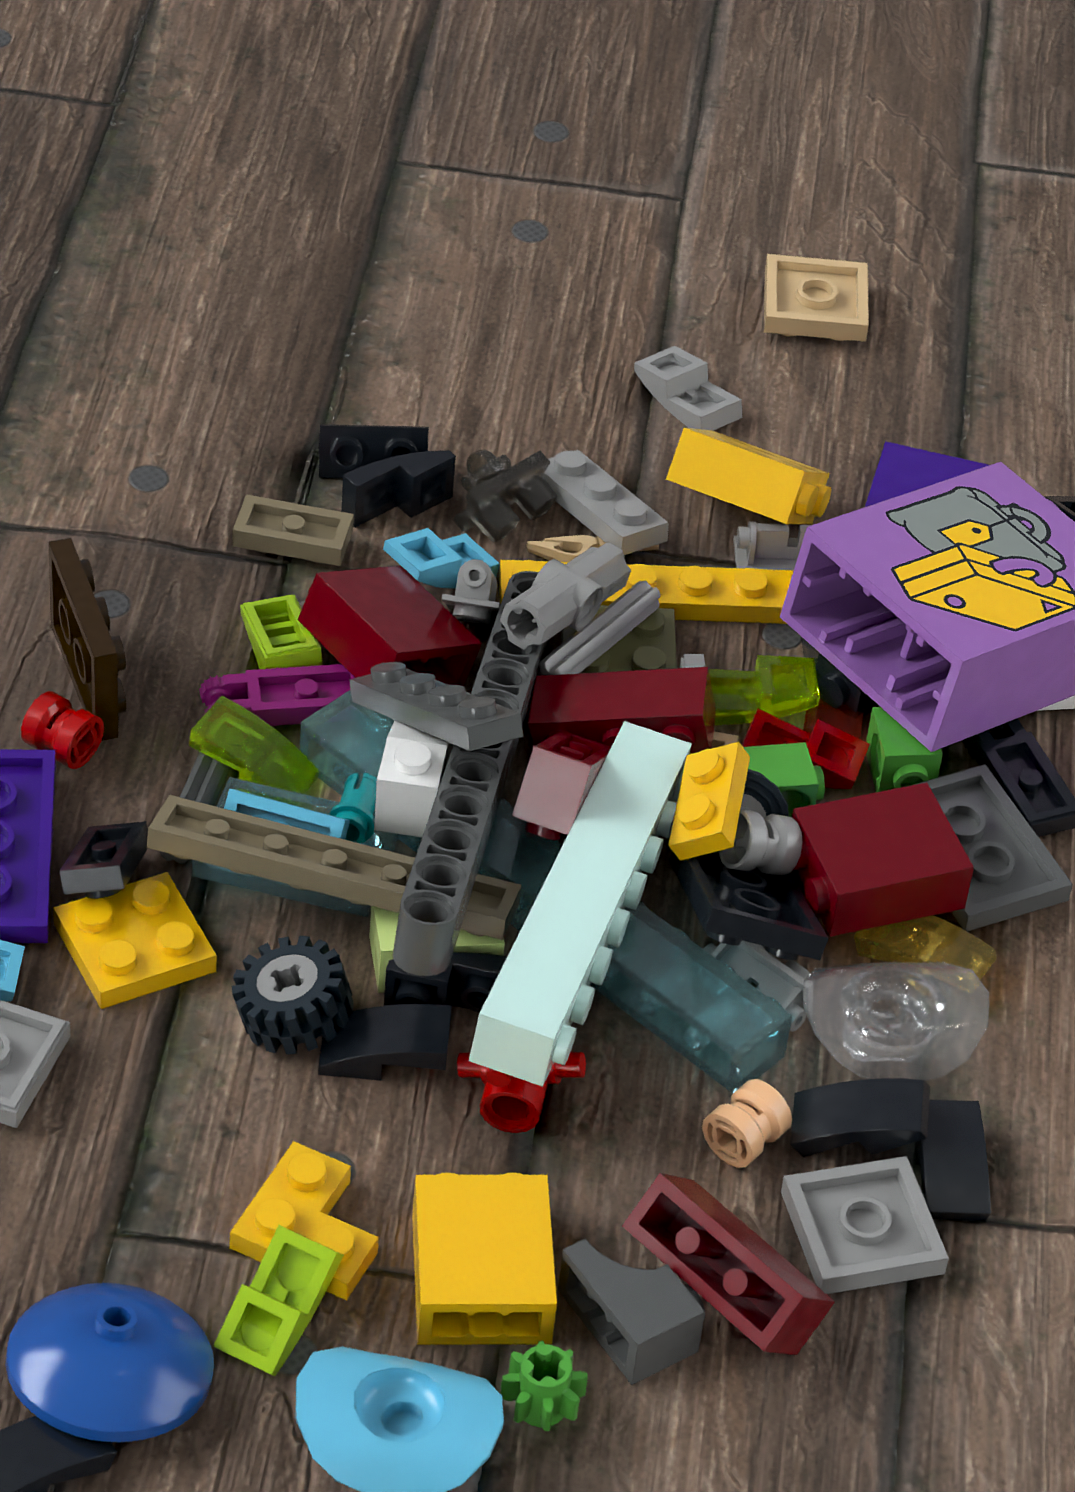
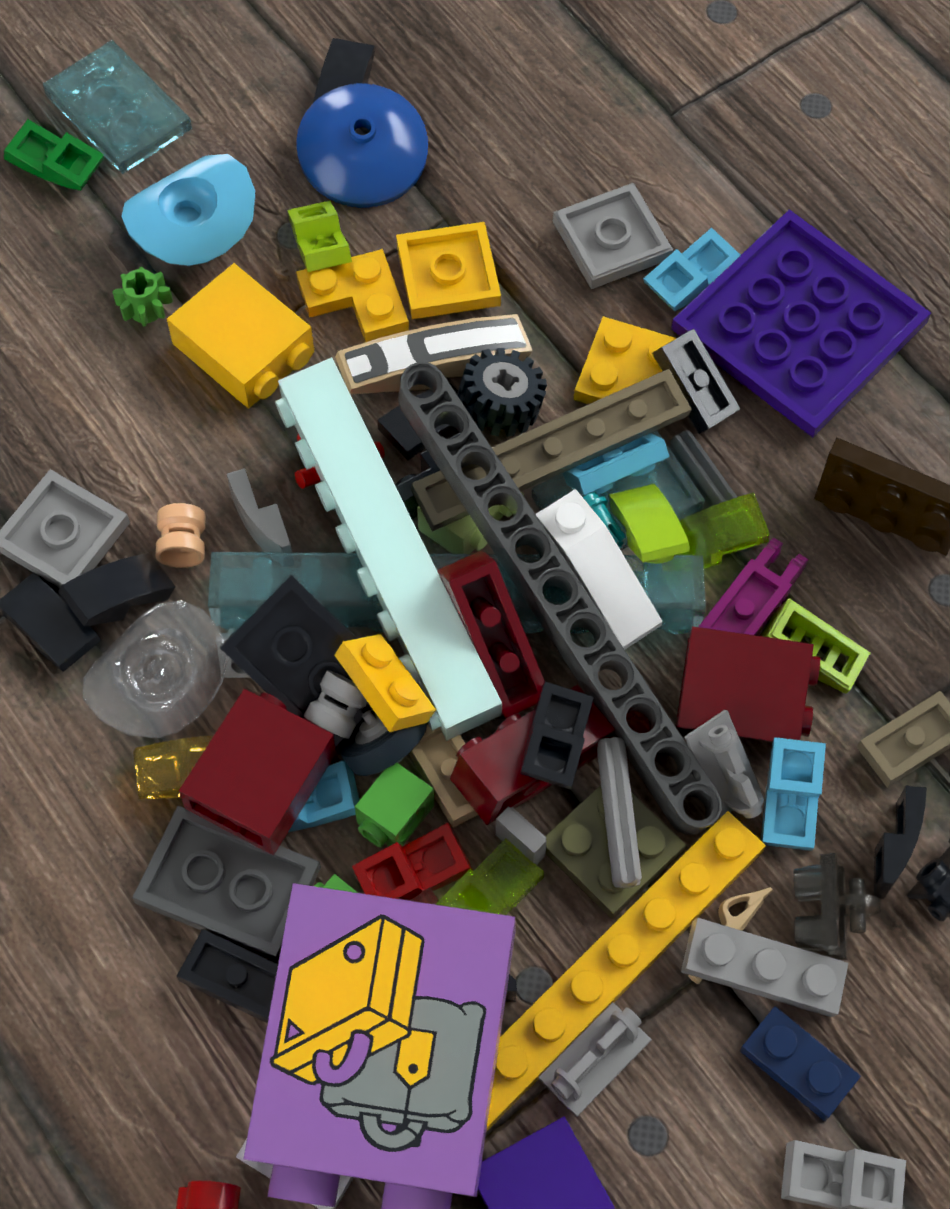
camera: 140 degrees right, 20 degrees up
(56, 726) = (819, 443): red wheel -> none
(190, 1156) = (448, 270): none -> yellow plate
(322, 755) = (649, 523): none -> lime slope
(323, 1084) = (449, 346): none -> slope
(435, 707) = (604, 574): dark grey plate -> none
(565, 595) = (651, 781): light grey piece -> none
(614, 673) = (556, 735): none -> black slope
(634, 1313) = (135, 369): dark grey arch -> none
(639, 454) = (800, 1063): none -> dark blue plate
(651, 1077) = (264, 523): none -> light grey slope
(728, 1264) = (104, 427): dark red brick -> none
(749, 477) = (678, 1073): yellow brick -> none

